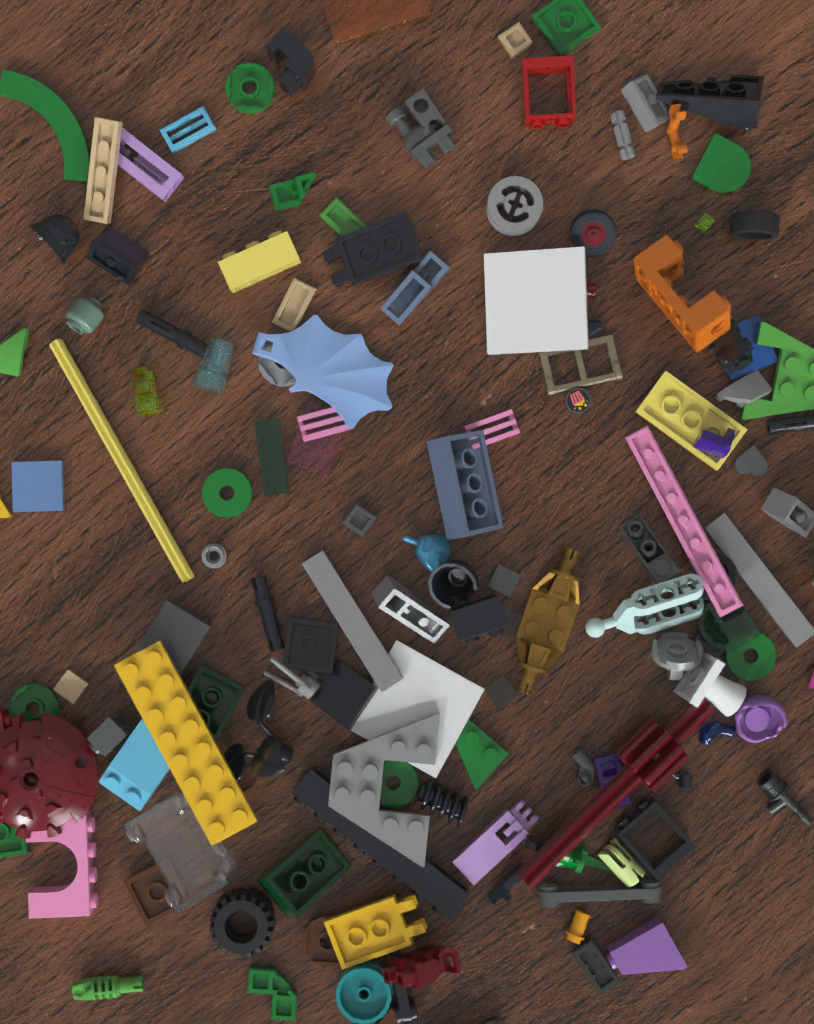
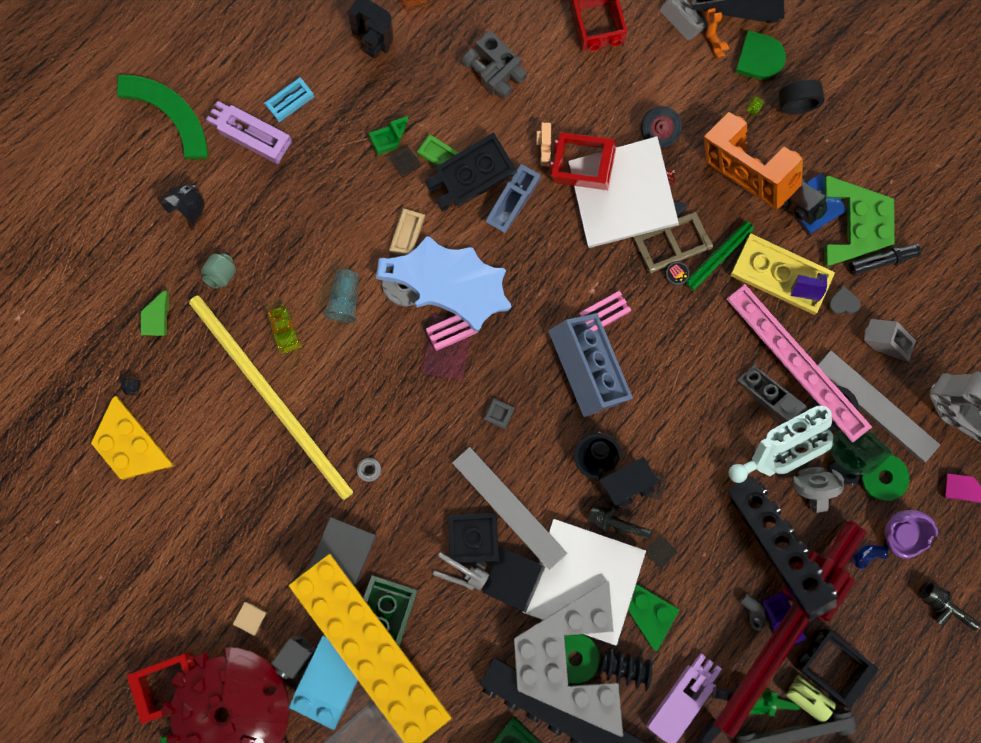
camera: 15 degrees left, 10 degrees down
(34, 693) = (215, 631): green tile -> none
(38, 486) = (194, 433): medium blue tile -> none
(102, 170) = (218, 141): tan plate -> none
(116, 254) = (240, 214): black panel -> none
(181, 338) = (300, 274): black pin -> none
(212, 493) = (367, 396): green tile -> none
(252, 102) = (343, 68): green tile -> none
(259, 261) = (370, 198): light yellow brick -> none
(269, 619) = (427, 514): black pin -> none
(272, 457) = (408, 370): clear green tile -> none
(272, 754) = (455, 647): black plant -> none
(304, 223) = (405, 161): none -> clear smoke tile
(409, 609) = (560, 487): light grey slope -> none
(430, 549) = (569, 429): dark azure piece -> none
(450, 648) = (605, 518): none -> pearl dark grey piece
(461, 225) = (544, 139): none -> light nougat plate
(497, 199) = (600, 116): light grey wheel -> none
(504, 580) = (643, 446): dark grey tile -> none
(521, 269) = (606, 164): none -> red window
(547, 620) = (691, 476): pearl gold plate -> none
(622, 135) = (669, 45): light grey axle -> none
(628, 388) = (719, 255): none -> green axle
(636, 775) = (811, 603): none -> black brick
(684, 779) = (851, 606): black hand -> none
(708, 684) = (852, 508): white plant -> none
(745, 390) = (825, 238): light grey slope -> none

